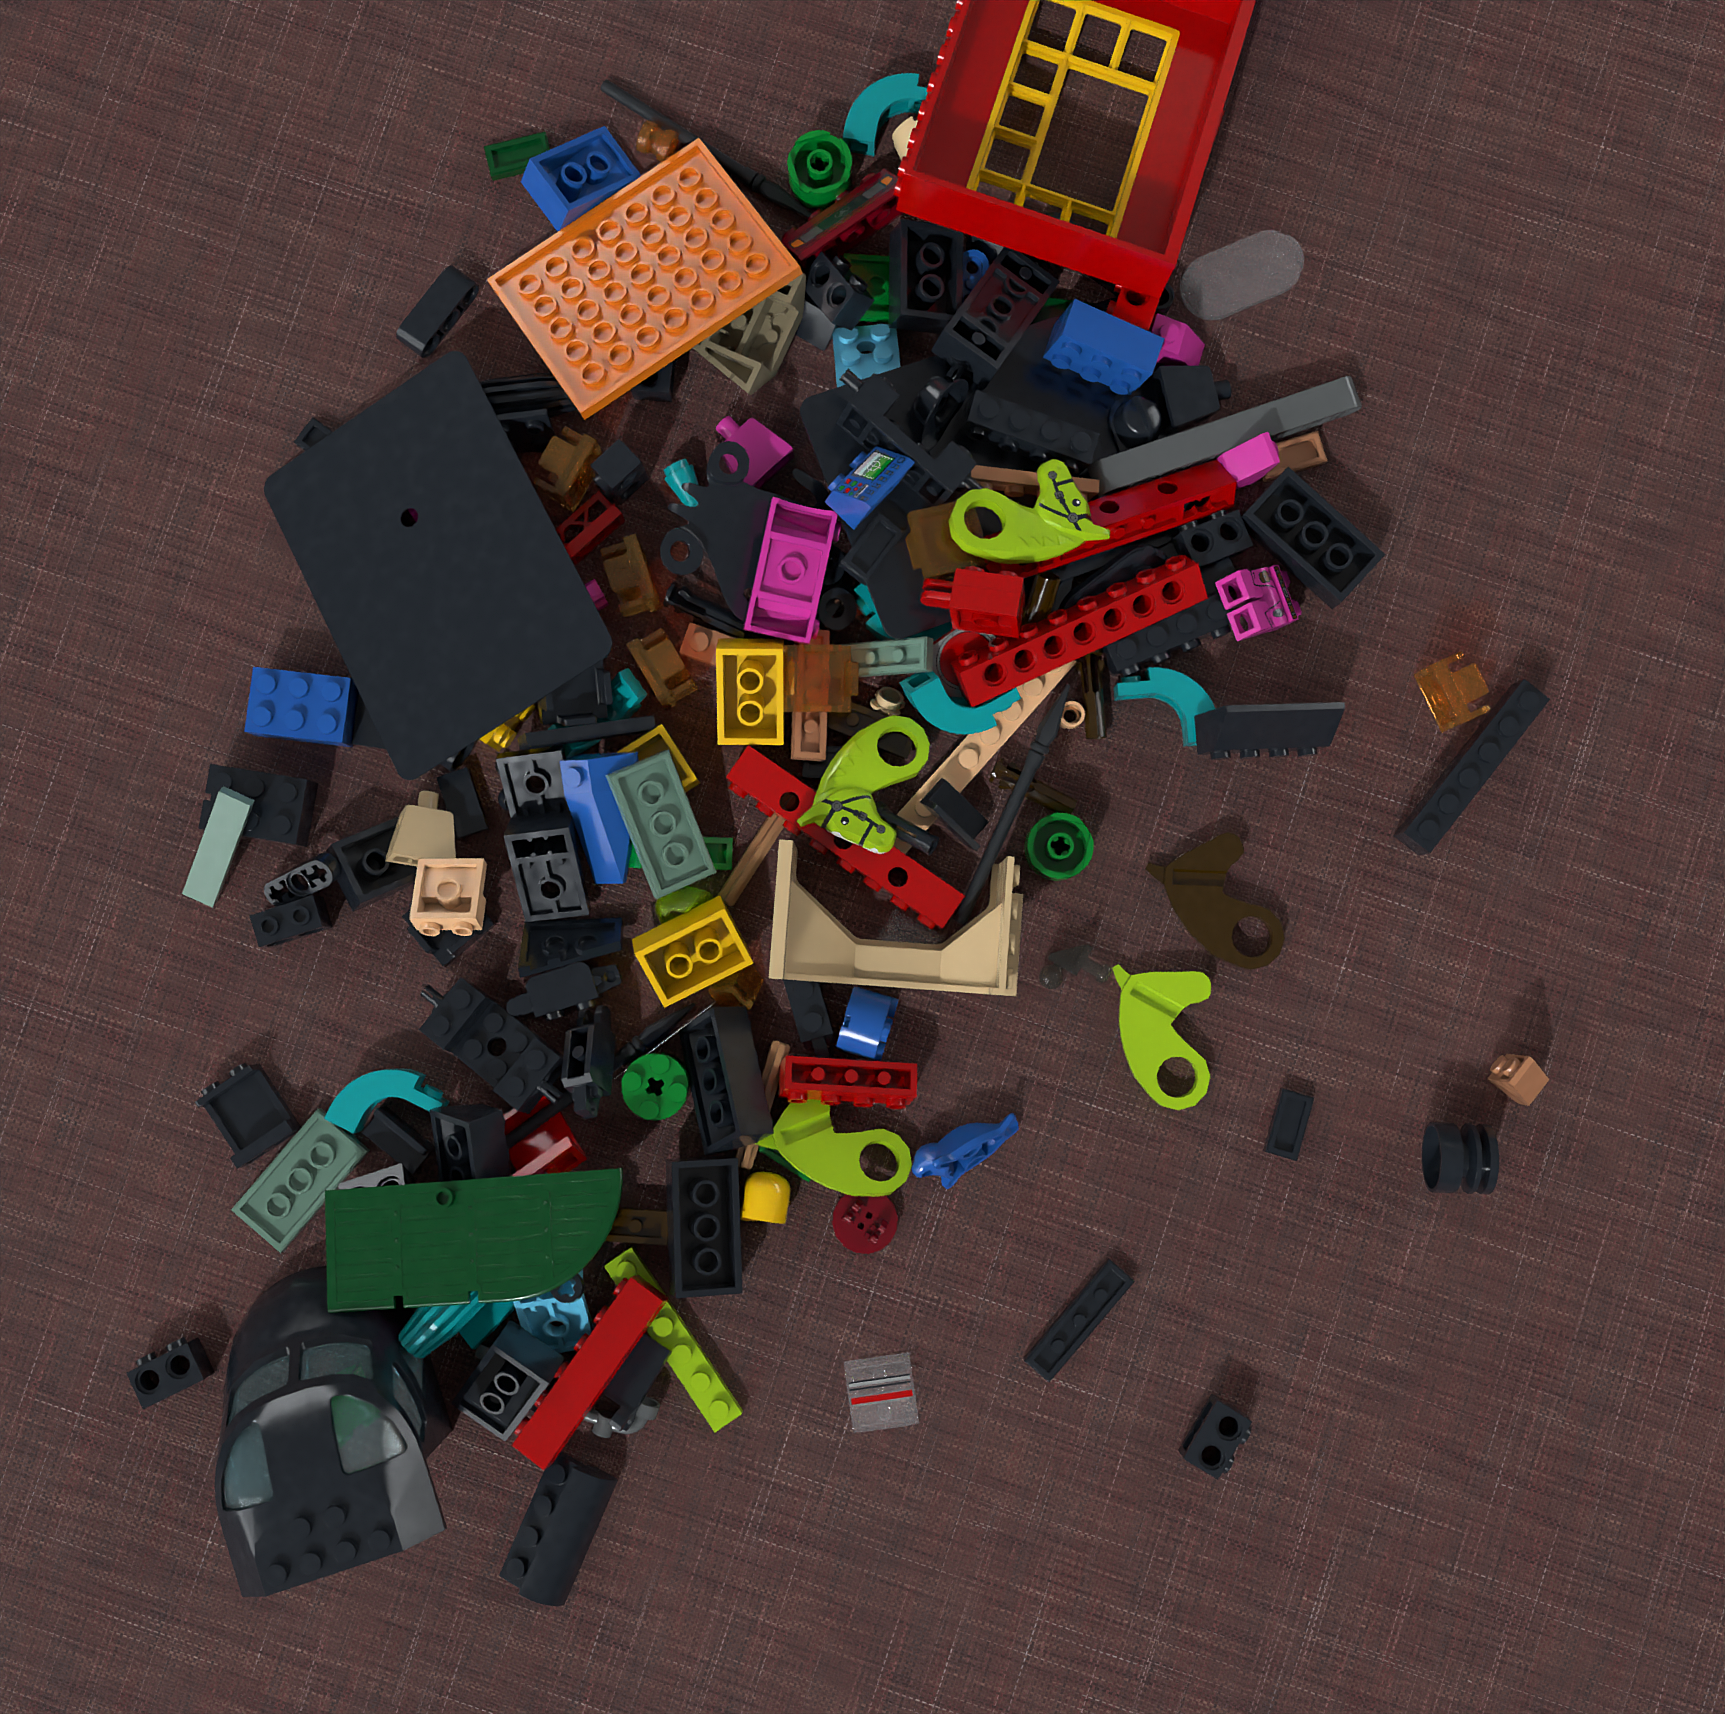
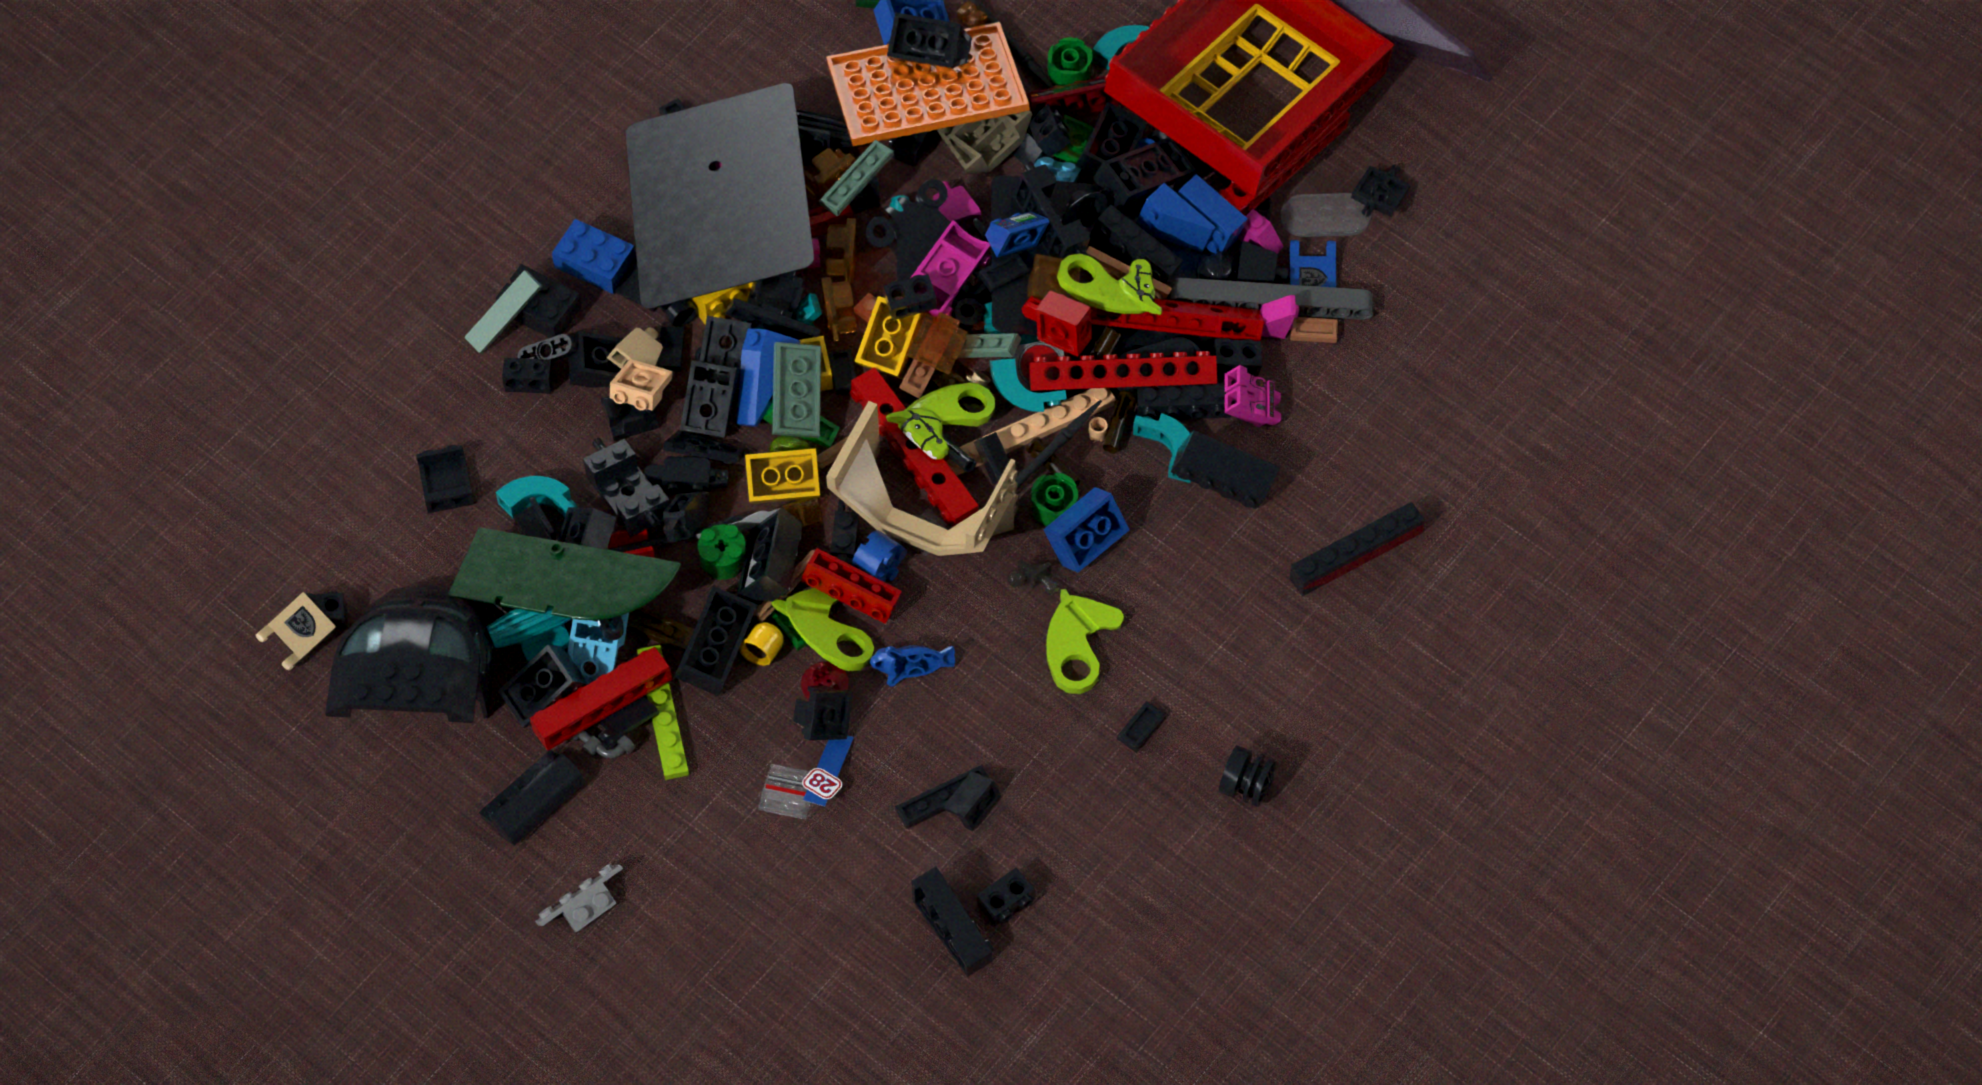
camera: 20 degrees right, 25 degrees down
(153, 1415) = (300, 628): none -> tan flag
(296, 1180) = (453, 532): sand green tile -> none
(437, 311) = (786, 64): black beam -> none
(611, 471) = (856, 177): none -> sand green tile
(621, 214) = (928, 41): none -> black slope
(686, 1648) = (586, 903): none -> light grey bracket
(701, 608) = (872, 281): black piece -> none
(703, 751) = (842, 370): none -> black tile
(768, 646) = (912, 302): none -> black brick
(892, 1286) = (825, 714): none -> black panel
(918, 1362) = (823, 780): none -> sticker
(1062, 372) = (1174, 220): none -> blue slope
(1118, 1317) = (973, 800): none -> black panel
(1120, 880) = (1086, 529): none -> blue brick
(1164, 1504) = (950, 921): none -> black wedge
(1197, 898) = (1141, 580): dark brown animal -> none
(1257, 372) = (1313, 270): none -> blue flag
(1305, 215) = (1380, 191): none -> black plate
(1311, 538) = (1303, 376): black brick -> none
(1450, 692) = (1359, 493): clear orange panel -> none
(1518, 1077) = (1310, 743): nougat slope -> none

